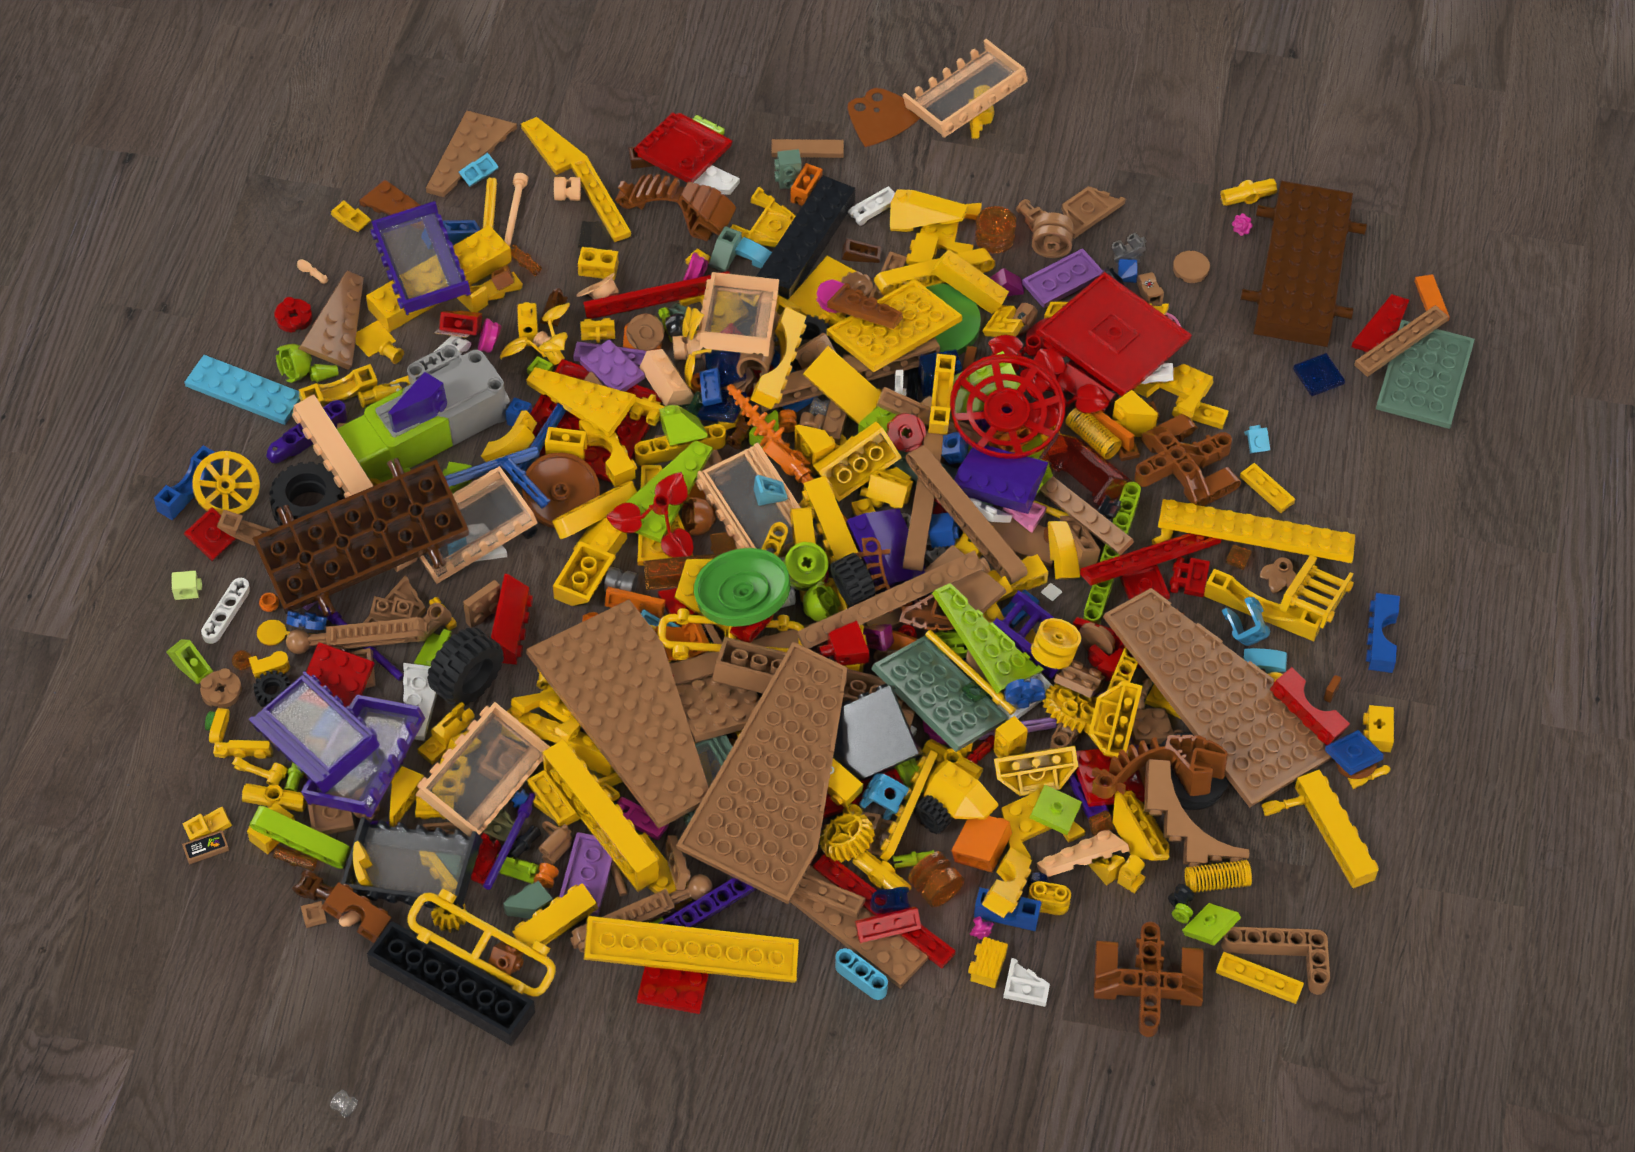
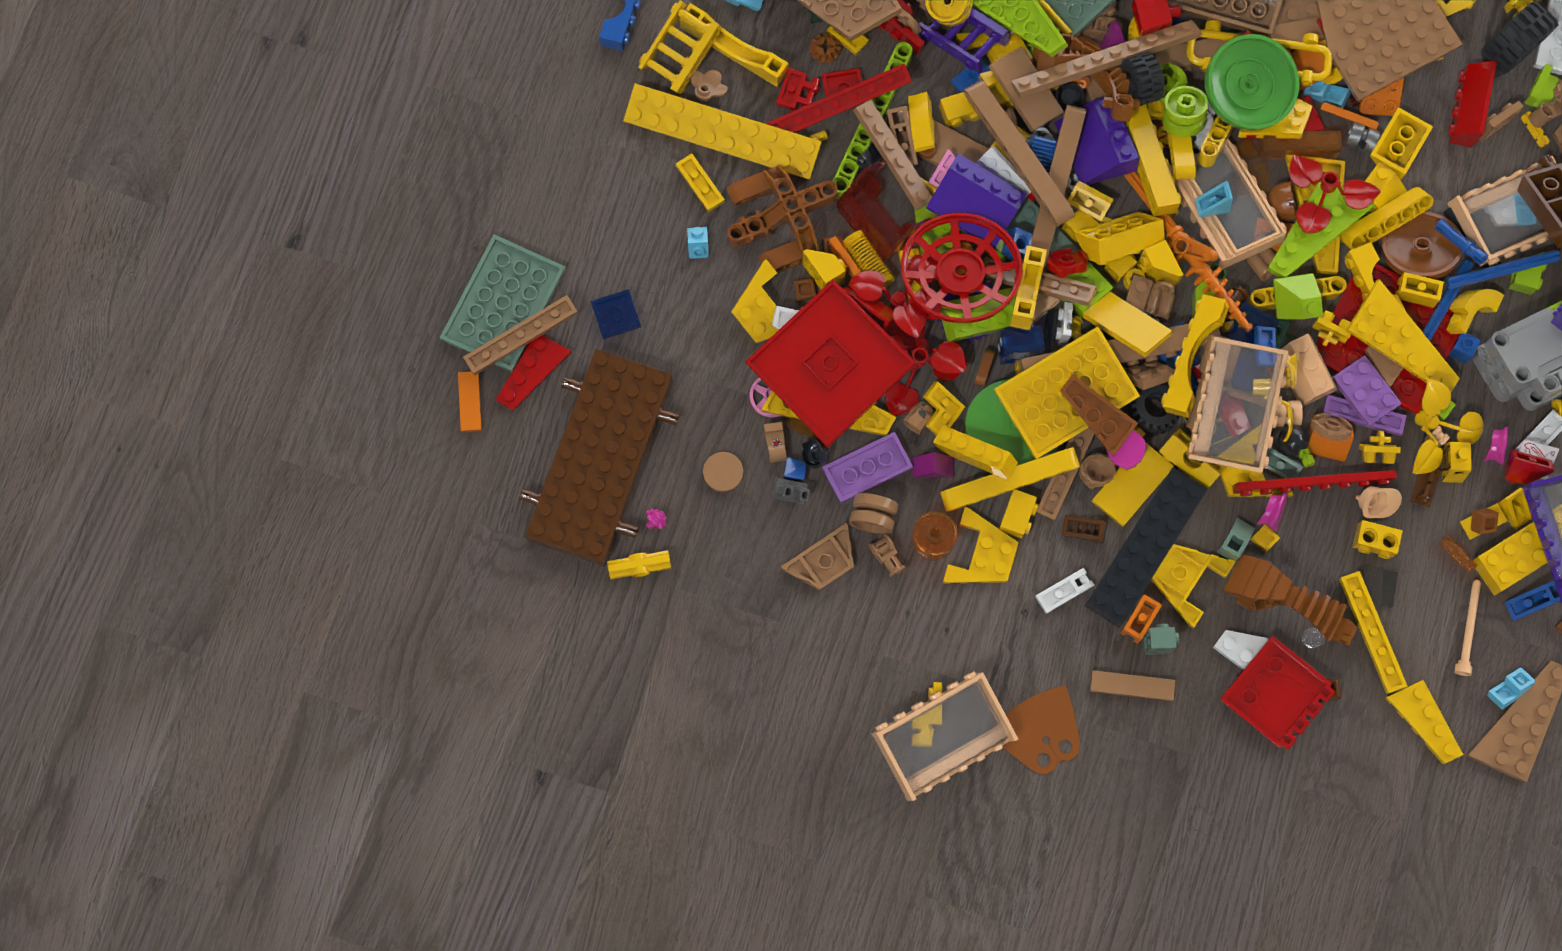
camera: 175 degrees left, 20 degrees up
(490, 199) = (1497, 635): yellow axle -> none
(567, 188) = (1414, 646): light nougat wheel -> none
(709, 124) = (1245, 730): lime axle -> none
(753, 251) = (1202, 535): medium azure slope -> none
(787, 420) = (1183, 312): orange wheel -> none
(862, 506) = (1118, 204): yellow plate -> none
(918, 209) = (1014, 565): yellow wedge -> none
(1051, 592) = (935, 95): white sticker -> none
(1205, 414) = (742, 275): yellow plate -> none
(1238, 557) = (745, 107): clear orange plate -> none
(1254, 634) = (758, 20): dark azure piece -> none

